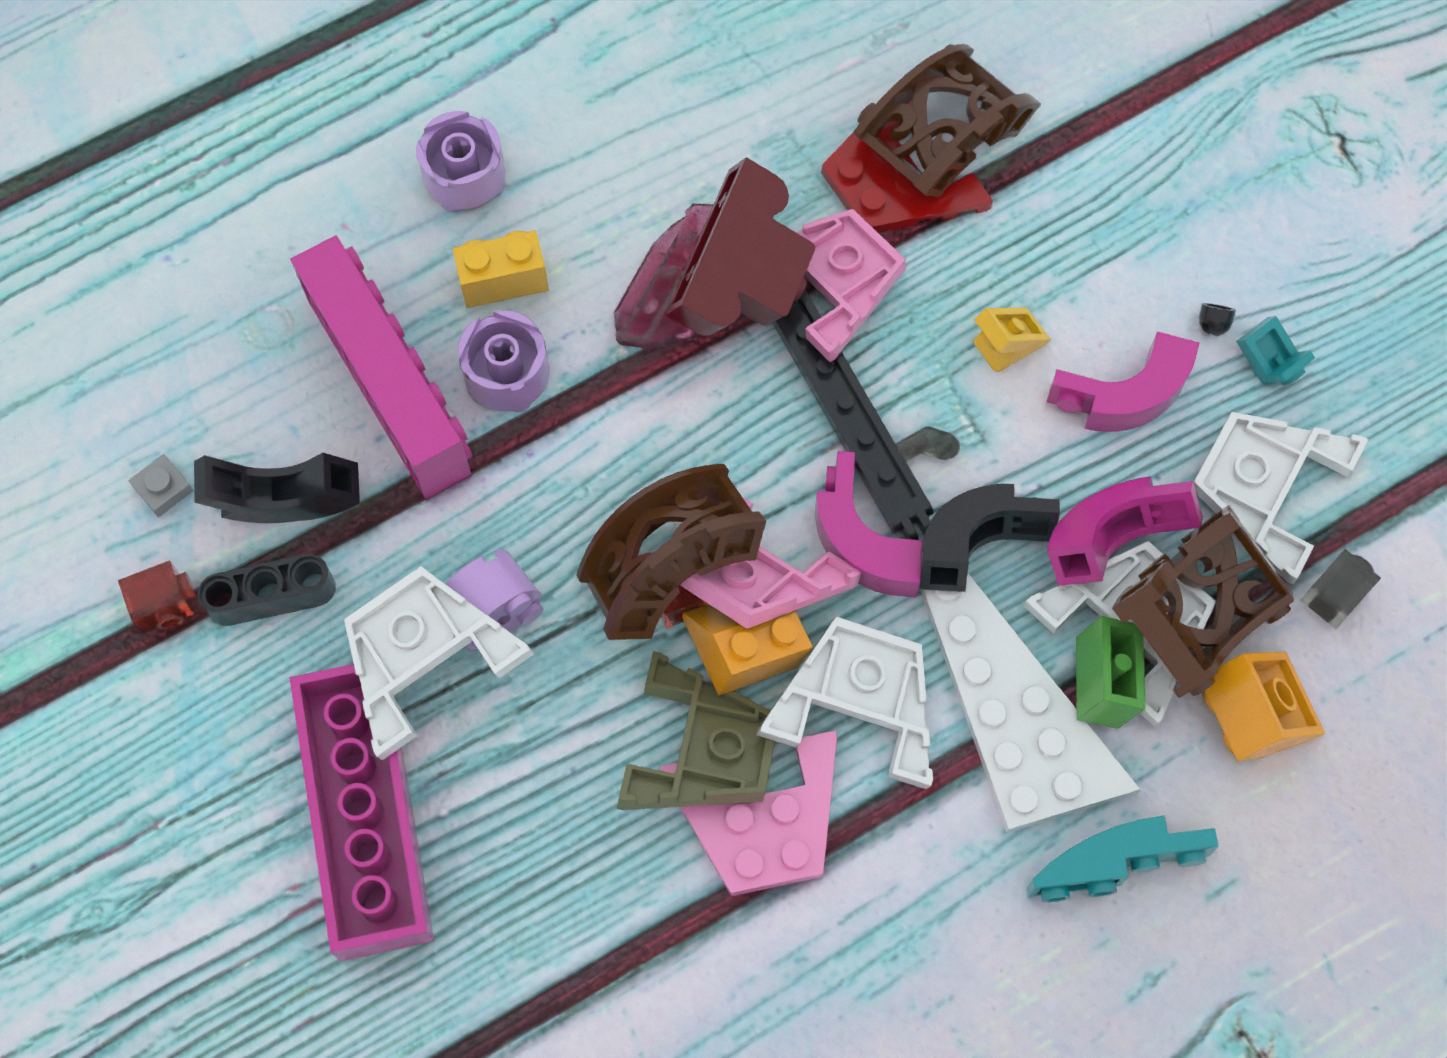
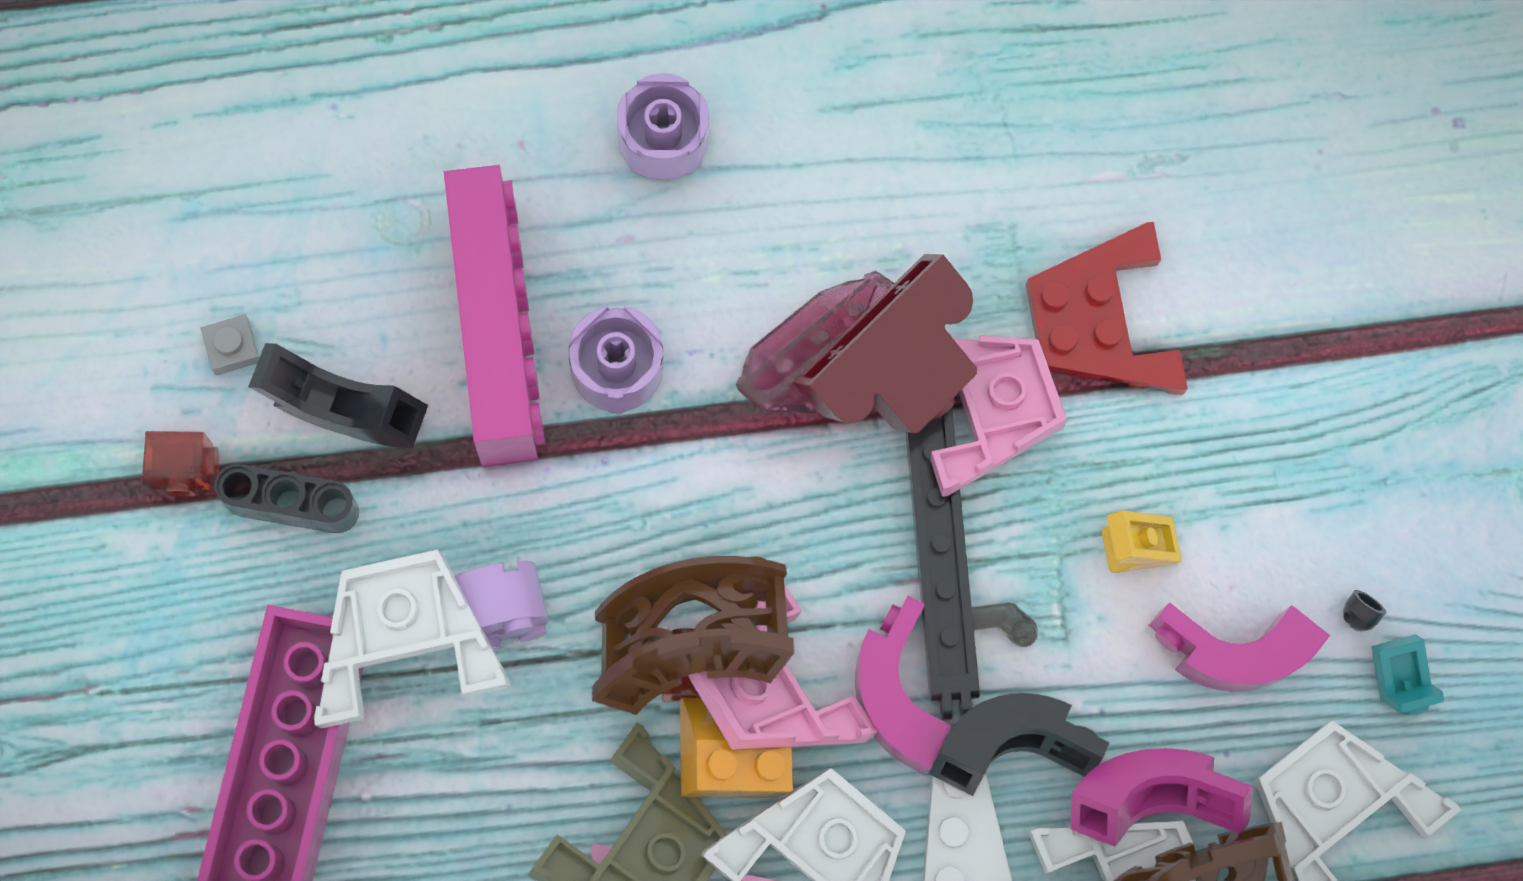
camera: 15 degrees right, 5 degrees up
(500, 268) = (654, 257): yellow brick -> none
(943, 161) = (1149, 329): reddish brown fence -> none

